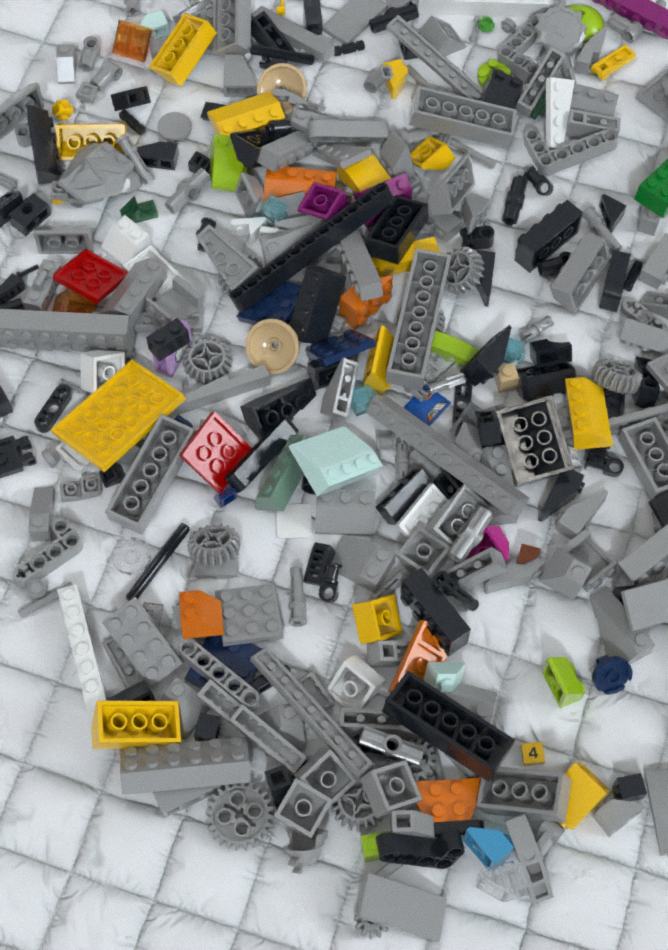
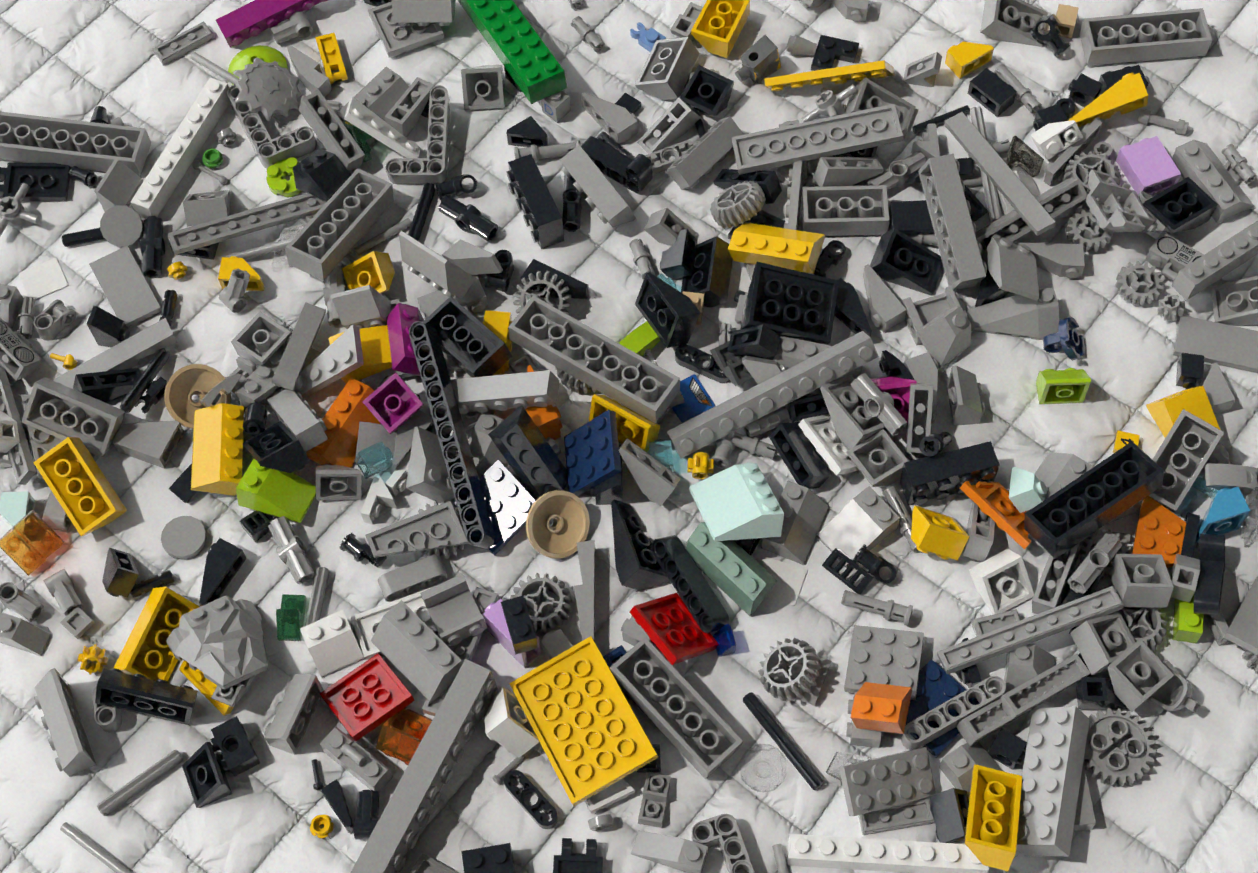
camera: 65 degrees left, 0 degrees up
(131, 151) = (210, 591): light grey pin -> none
(160, 221) = (317, 595): none -> light grey axle
(178, 380) = (555, 643): none -> light grey brick
(196, 273) = (412, 578): none -> light grey beam
(344, 105) = (260, 339): none -> light grey slope
(367, 429) = (700, 465): none -> yellow gear
(381, 40) = (177, 270): none -> yellow plate
(400, 284) = (521, 364): none -> light grey tile
(447, 383) = (676, 356): light grey axle -> none
(499, 170) = (422, 211): none -> black axle
(515, 604) = (964, 397): none -> light grey slope
(520, 538) = (893, 366): none -> black slope
(527, 554) = (915, 362): copper tile -> none
(572, 332) = (665, 226): none -> light grey slope
(627, 524) = (906, 262): none -> black slope
(637, 165) = (483, 87): none -> light grey slope

